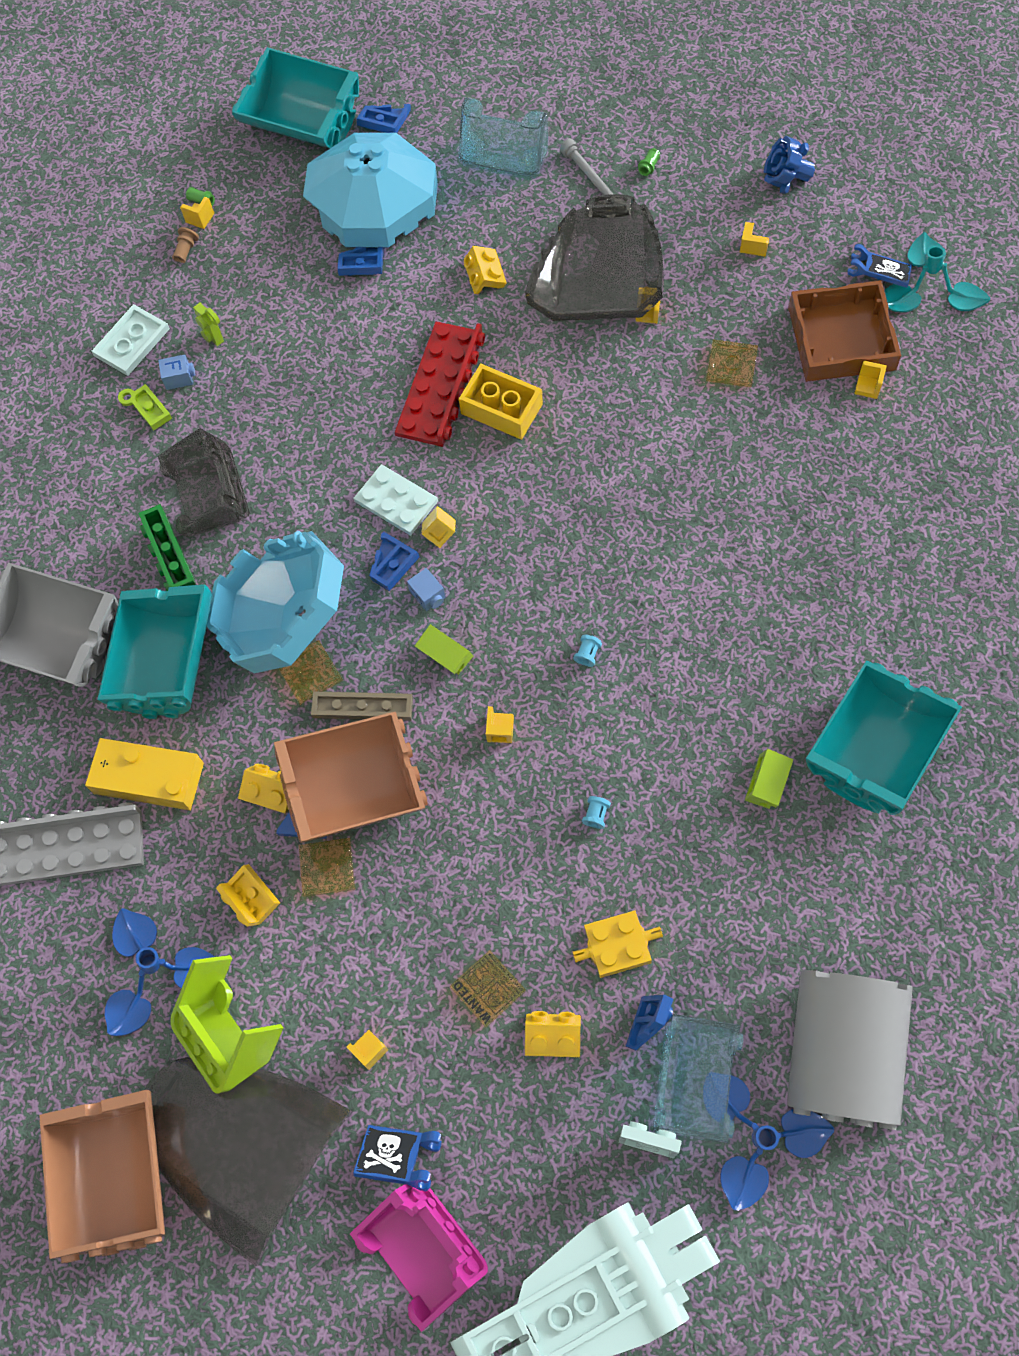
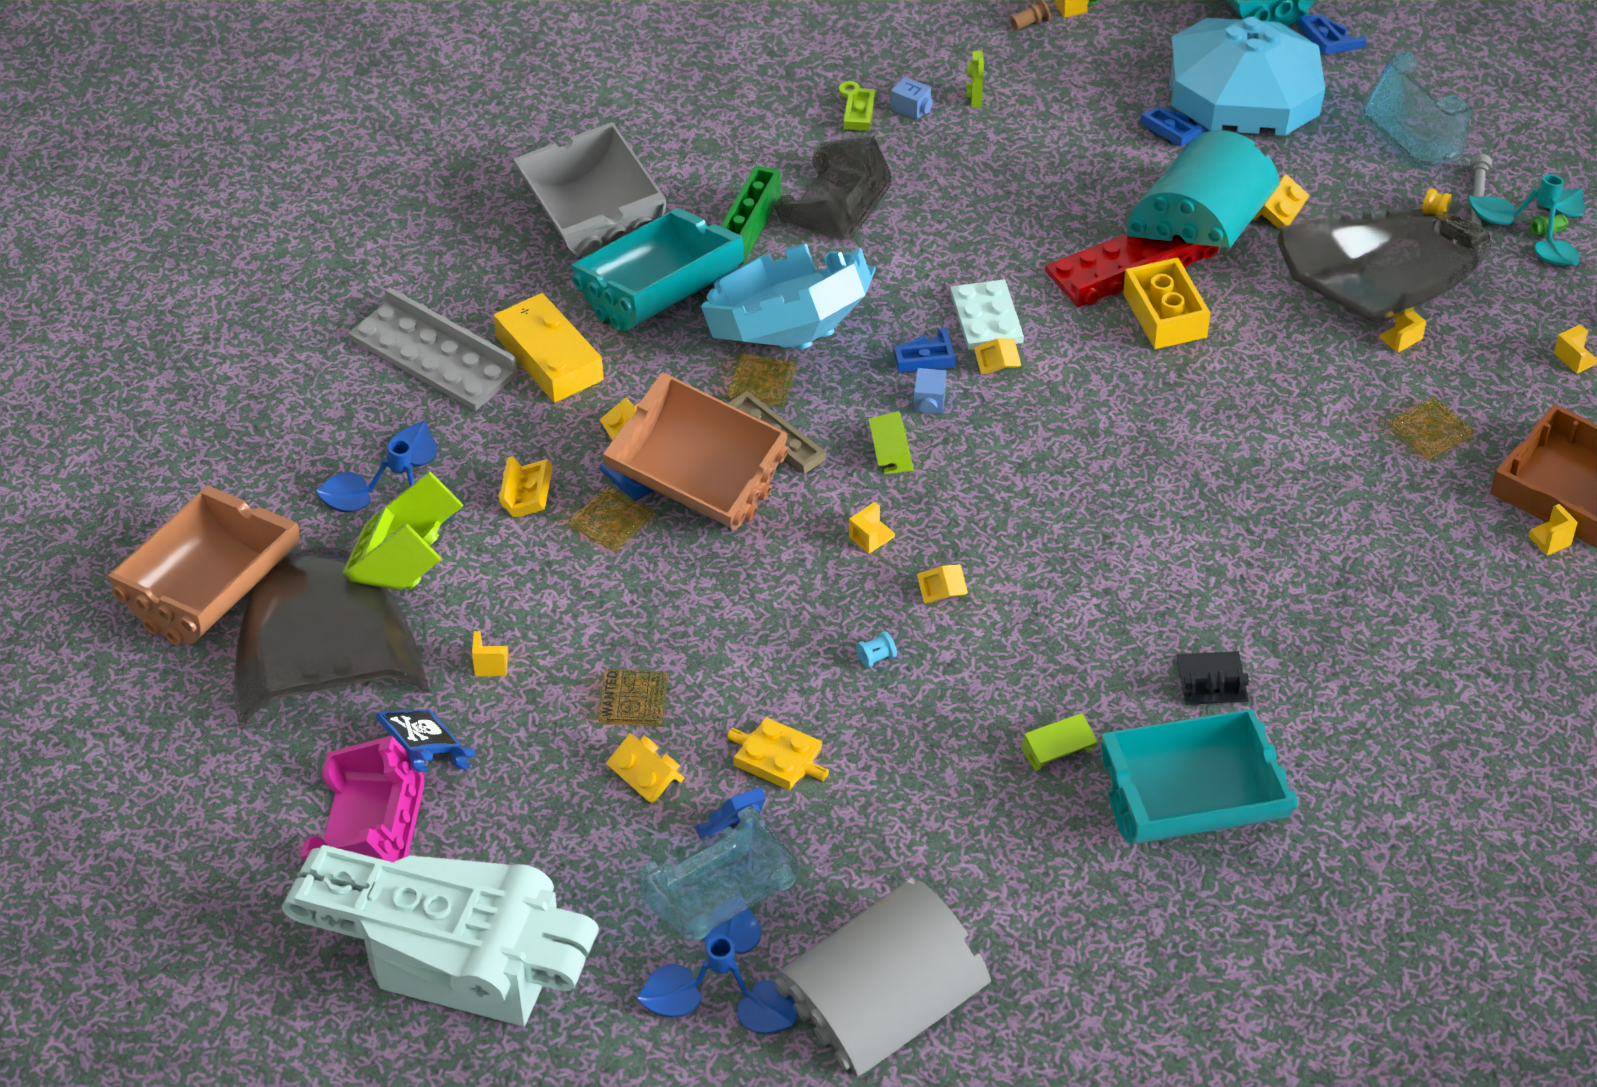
camera: 40 degrees right, 20 degrees down
(130, 340) = (902, 53): light aqua plate -> none
(446, 300) = (1207, 192): none -> teal cylinder
(574, 197) = (1436, 203): none -> yellow wheel
(583, 727) = (942, 583): none -> yellow panel
(587, 650) = (1023, 528): medium azure bush -> none
(640, 139) = (1548, 195): none -> teal plant
(660, 1143) = (625, 877): light aqua plate -> none
(797, 649) = (1212, 678): none -> black hinge

